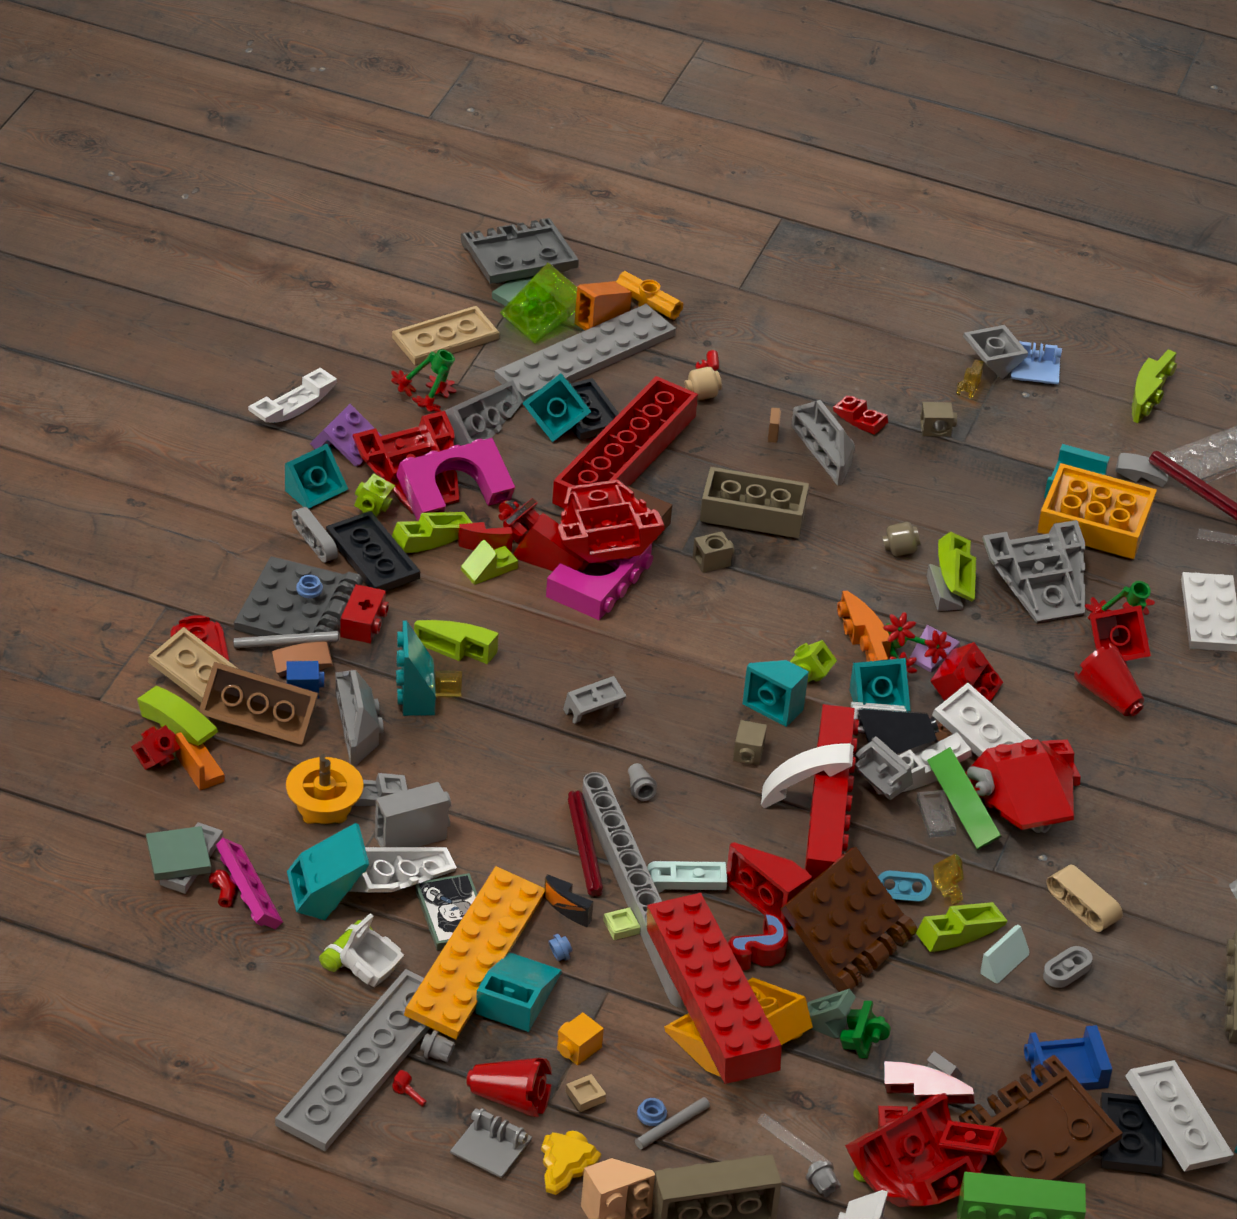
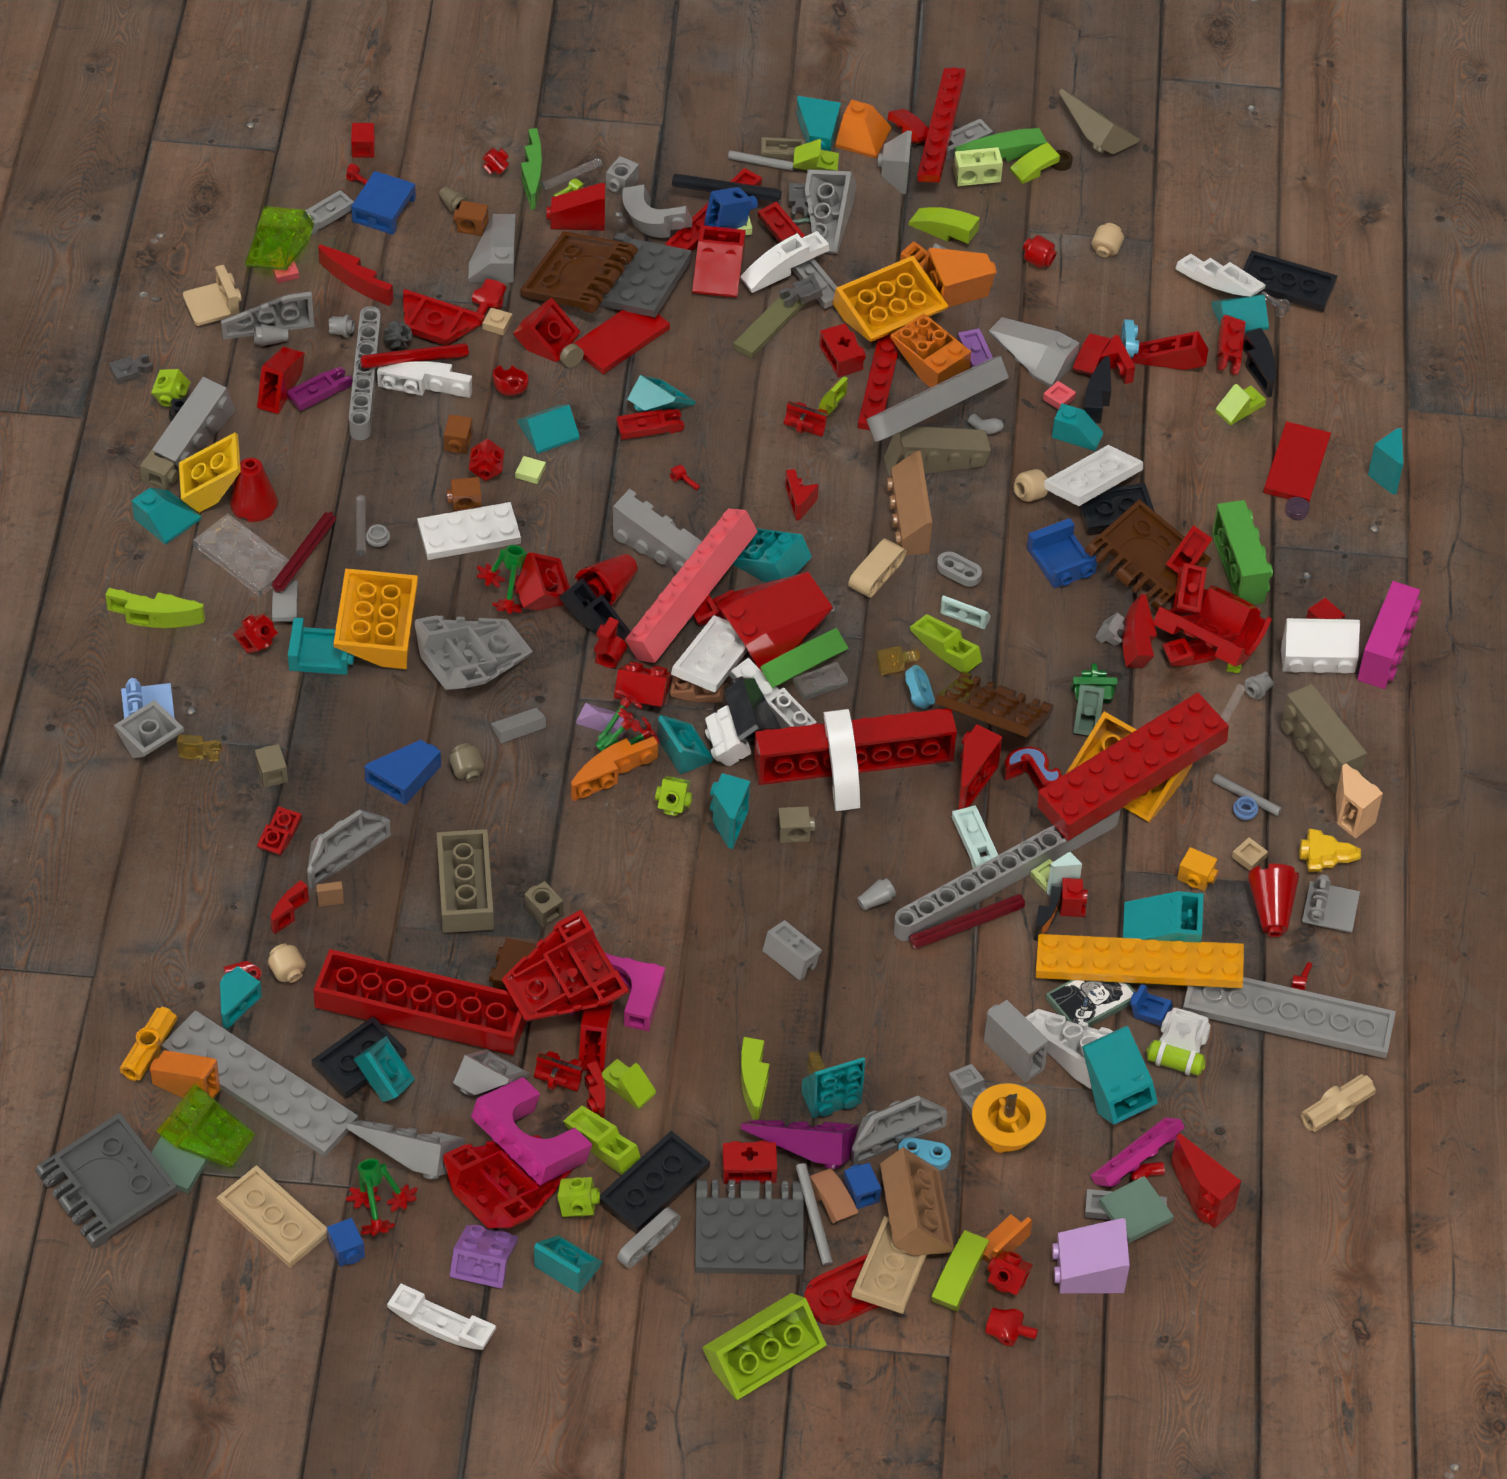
camera: 105 degrees left, 10 degrees up
(104, 737) = (1008, 1325): none -> red piece
(137, 808) = (1092, 1258): none -> lavender slope
(167, 575) = (765, 1345): none -> lime slope
(184, 907) = (1205, 1182): none -> red slope
(234, 1059) = (1338, 1103): none -> tan piece
(309, 586) = (741, 1203): medium blue plate -> none
(322, 737) = (925, 1149): none -> medium azure plate
(373, 655) = (823, 1143): none -> magenta wedge
(394, 358) = (345, 1242): none -> blue brick
(421, 944) = (1149, 1007): none -> blue bracket
(437, 1047) = (1254, 965): light grey hose -> none
(533, 474) = (485, 1072): none -> light grey slope
(560, 947) = (1102, 907): medium blue plate -> none
(579, 923) = (1073, 898): none -> red brick
(604, 915) = (1065, 867): none -> light aqua slope
(679, 350) = (237, 995): none -> teal slope
(767, 396) = (284, 910): none -> red slope
(884, 768) = (808, 706): light grey hinge -> none
(903, 497) = (404, 770): none -> blue slope
(957, 565) = (492, 713): lime slope -> none
(985, 780) = (786, 639): light grey arm -> none
(1022, 660) = (609, 647): none -> red plate
(1027, 1154) = (1190, 549): none -> red slope
(1060, 669) = (591, 609): none -> black slope
(1087, 735) = (691, 585): none -> coral brick
(1100, 435) = (255, 633): none -> red brick
(1122, 816) = (773, 555): none -> teal slope
(1164, 730) = (650, 533): none -> light grey wedge
(1164, 946) = (910, 505): none -> medium nougat slope
(1184, 1056) = (1030, 485): none -> tan head
(1205, 859) = (800, 496): none -> red slope
(1216, 545) = (377, 535): none -> light grey plate

